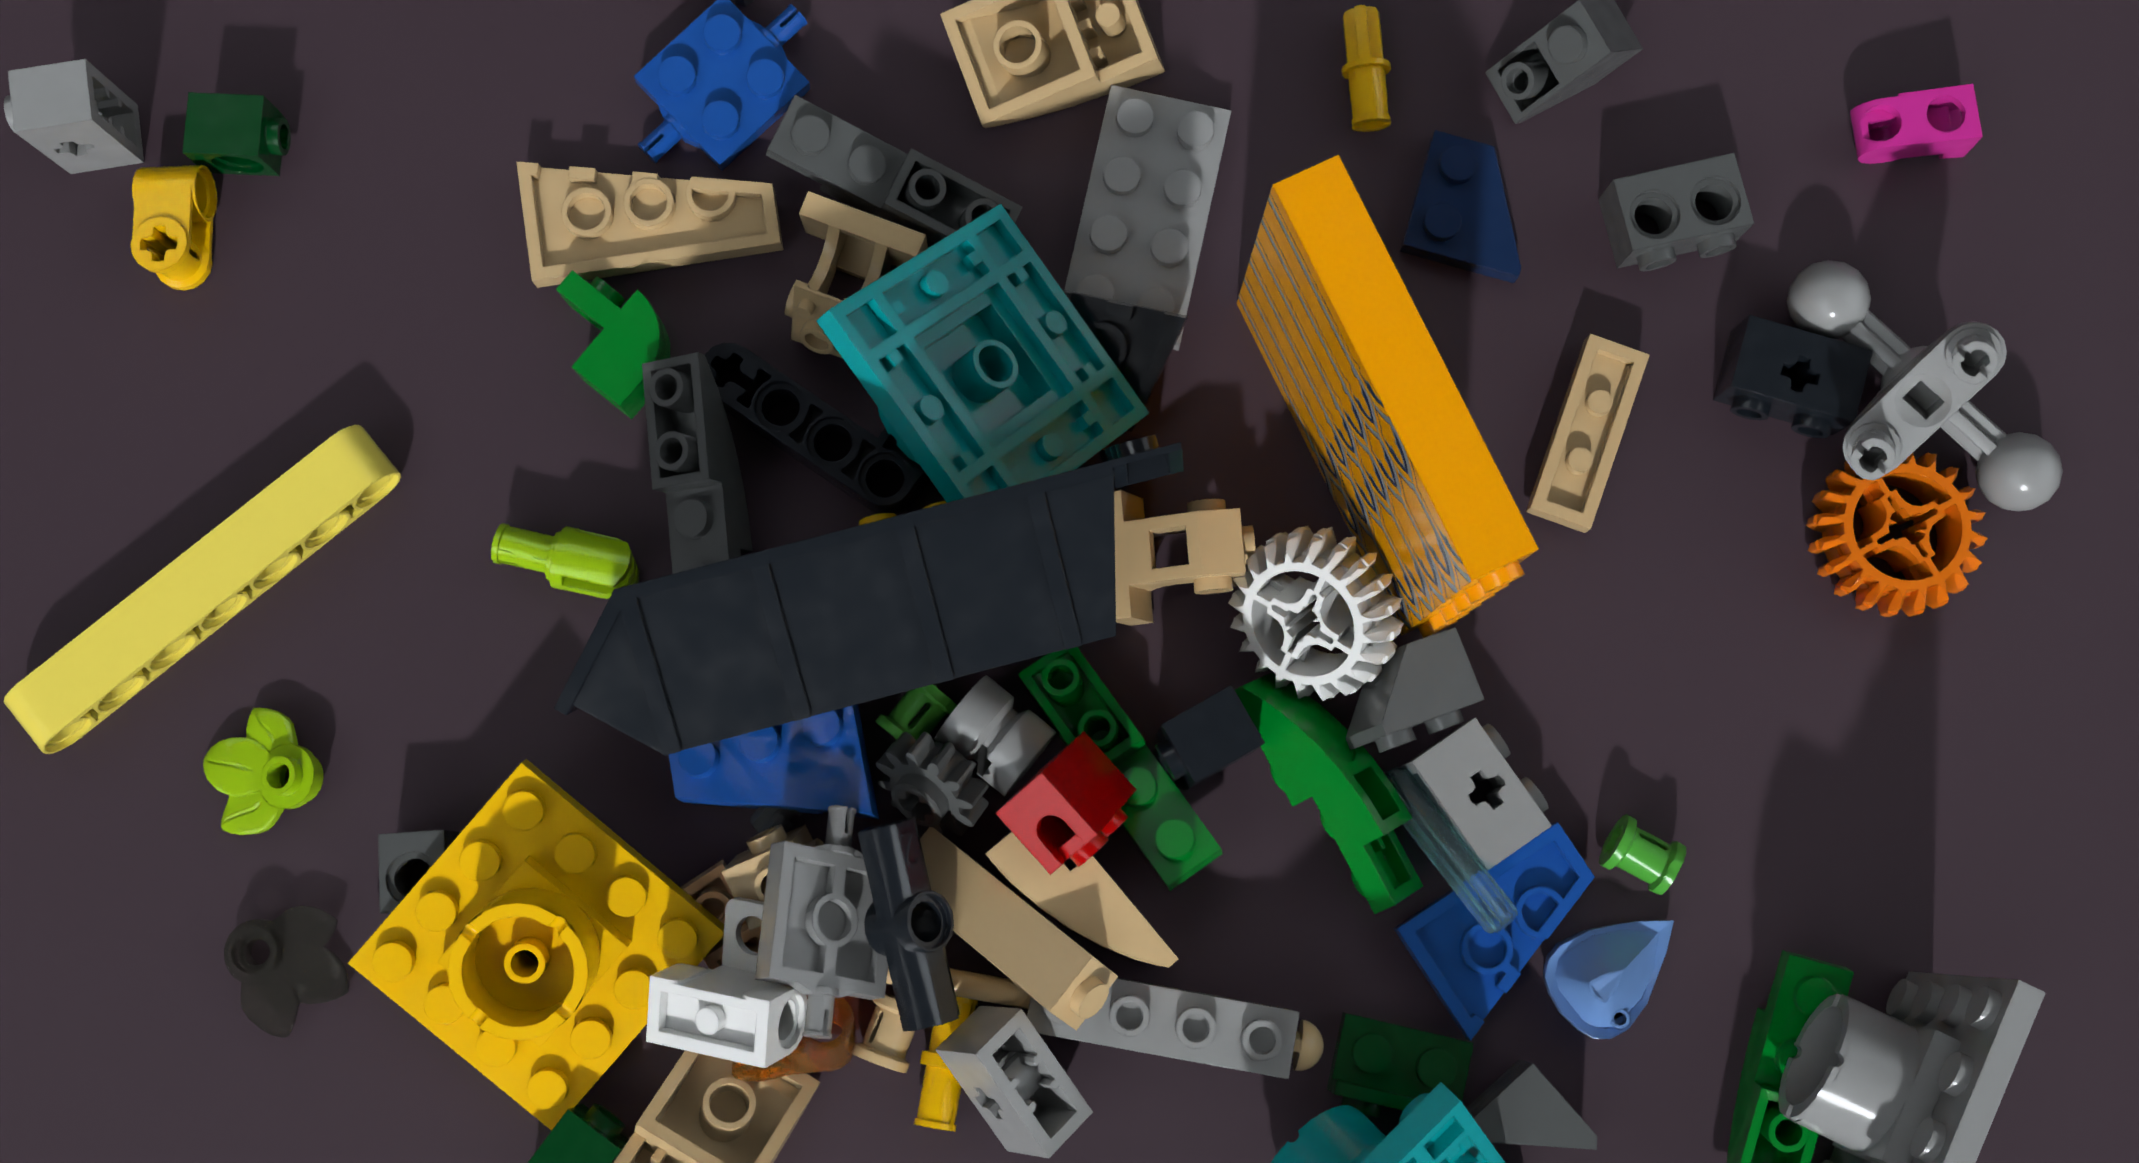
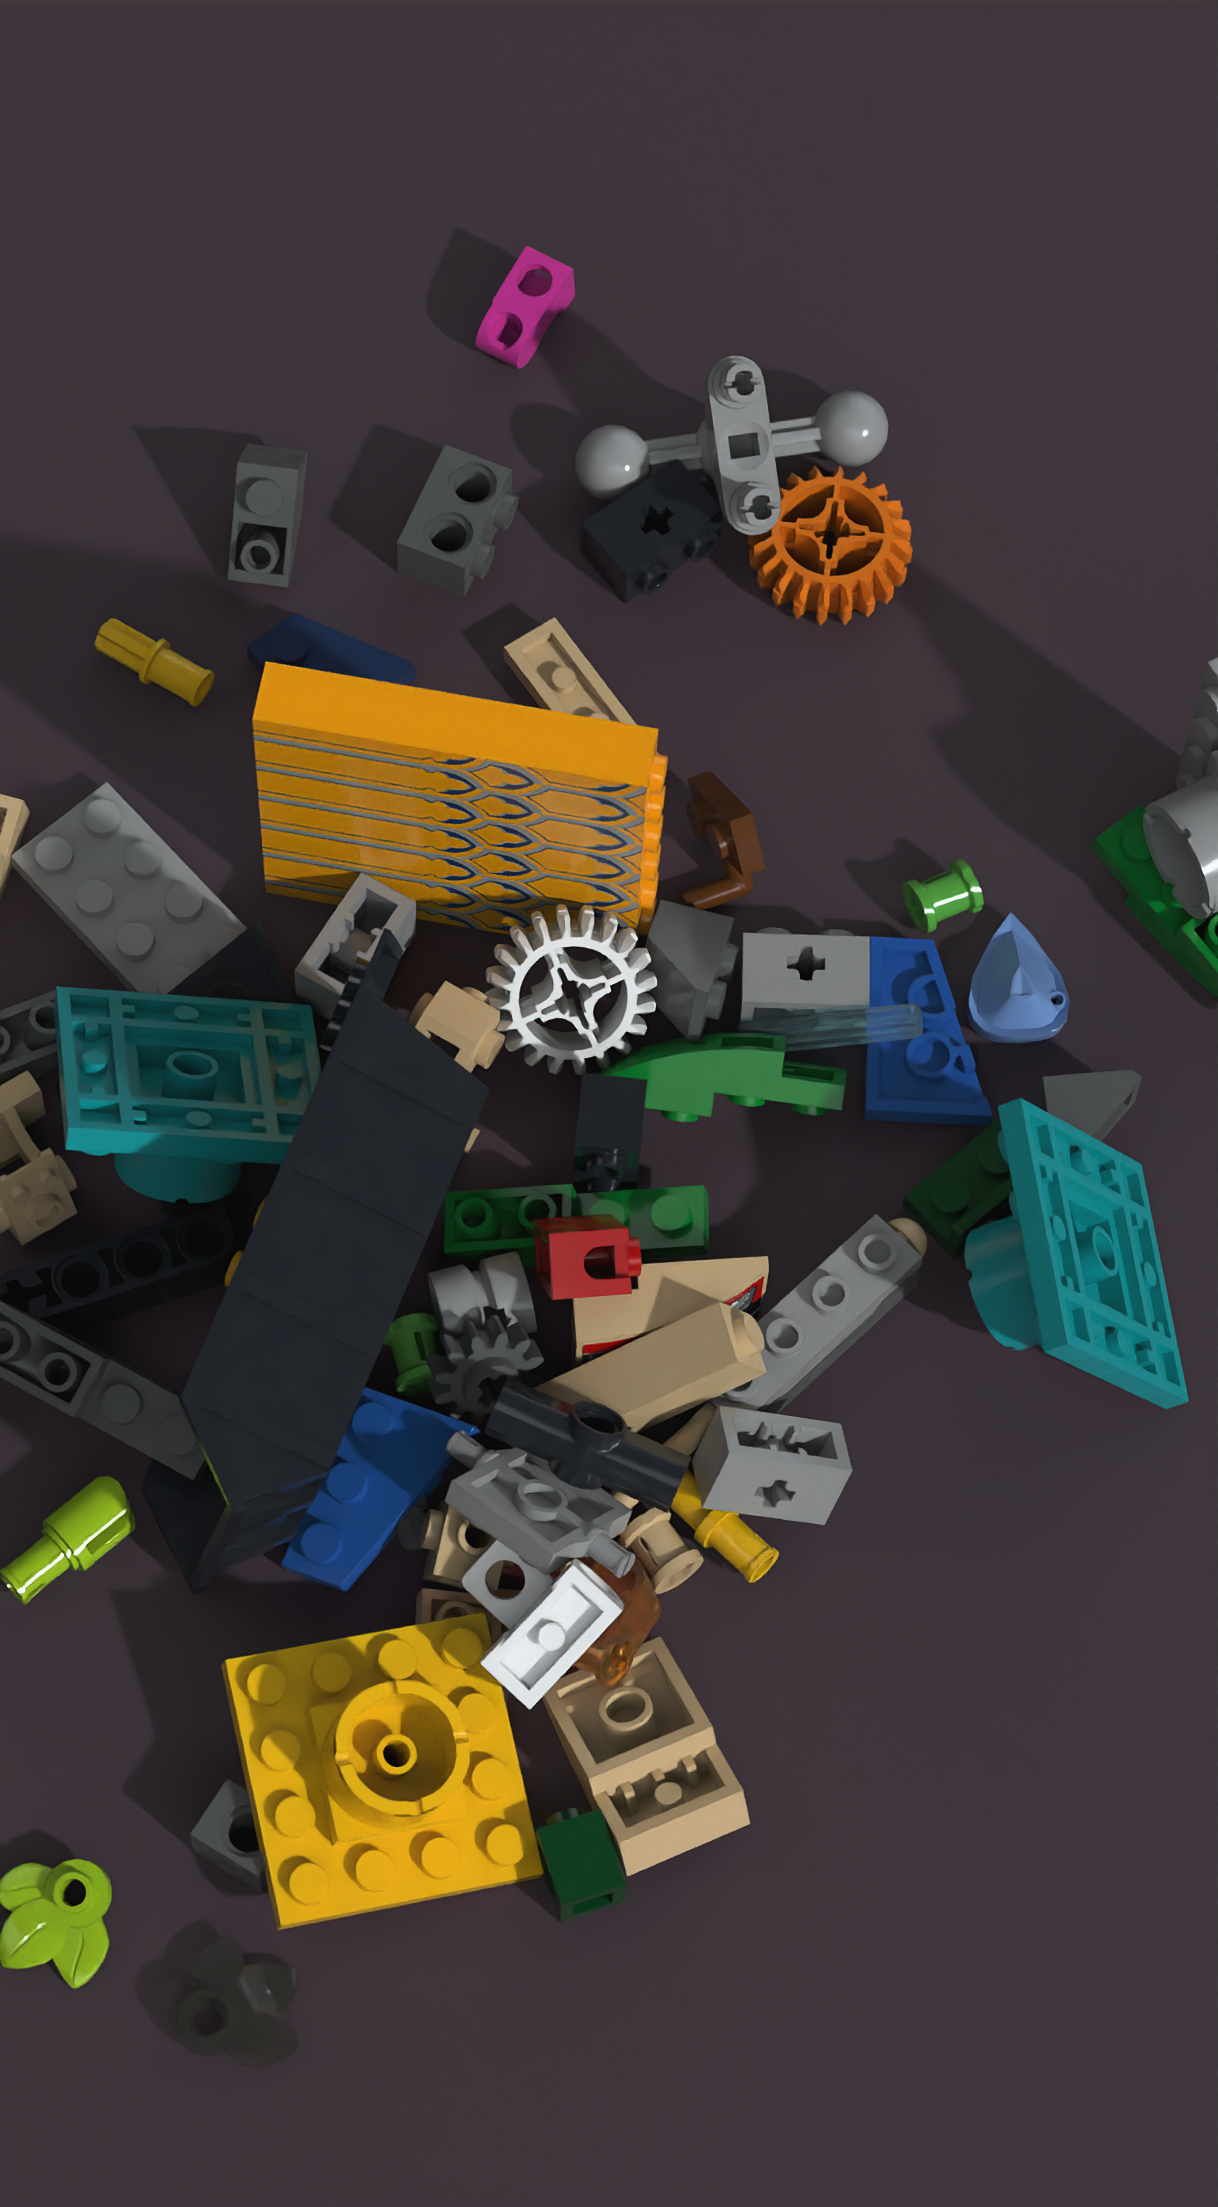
camera: 55 degrees left, 15 degrees down
(1226, 412) = (351, 934): none -> light grey brick
(1554, 642) = (732, 836): none -> reddish brown plate

